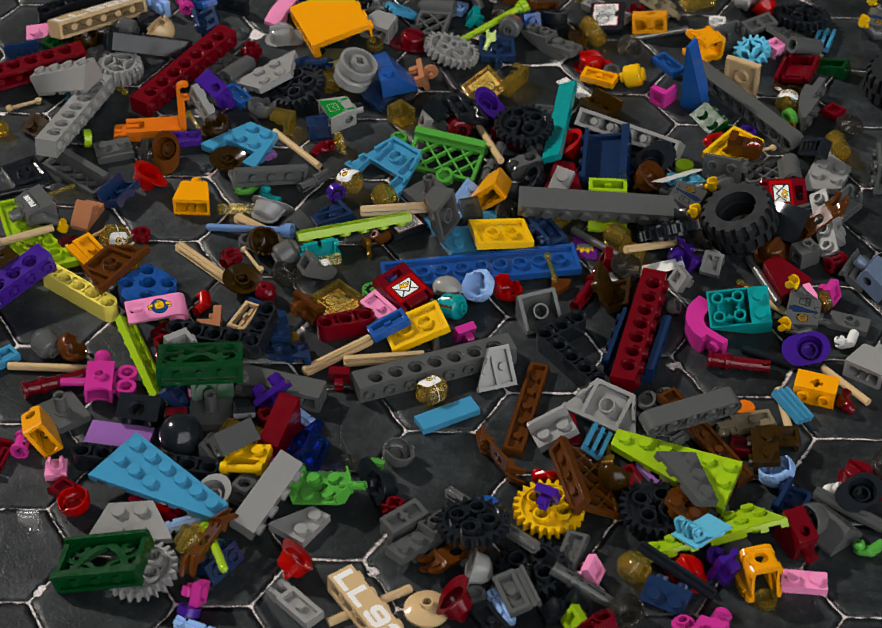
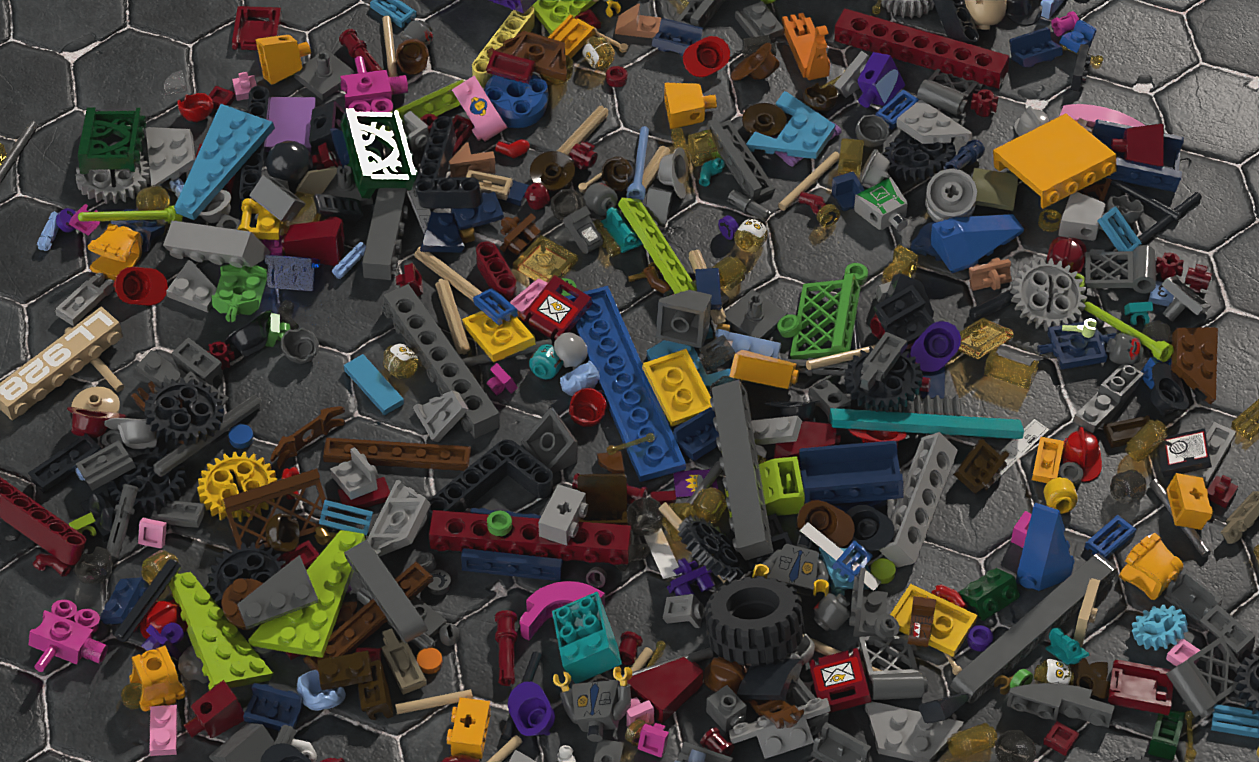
camera: 80 degrees right, 10 degrees up
(126, 276) = (510, 67): none -> dark red tile
(189, 138) = (793, 75): dark purple plate -> none
(196, 555) = (121, 203): reddish brown piece -> none
(207, 419) = (316, 181): none -> dark tan tile
(249, 188) = (701, 147): none -> clear yellow panel
(249, 569) = (118, 249): none -> light orange piece
(264, 396) = (360, 219): dark purple hips -> none
(305, 104) = (875, 169): none -> light grey piece
(337, 213) = (688, 232): dark blue wing -> none
(394, 158) = (798, 274): dark azure wing -> none
(407, 202) = (709, 282): none -> dark blue tile
(519, 113) = (881, 359): none -> dark grey hinge
(546, 495) = (233, 469): dark purple tile -> none
(632, 336) = (499, 523): none -> bright green tile
(634, 295) = (562, 515): none -> light grey brick
(680, 279) = (646, 578): light grey tile -> none
(685, 169) = (846, 569): none -> blue tile
(700, 531) = (195, 609): medium azure hinge -> none
(716, 21) = (1235, 590): white tile -> none
(772, 88) = (1065, 648): none -> teal hinge
(792, 405) = (420, 719): dark azure tile -> none
(818, 516) = (234, 720): dark grey hair -> none

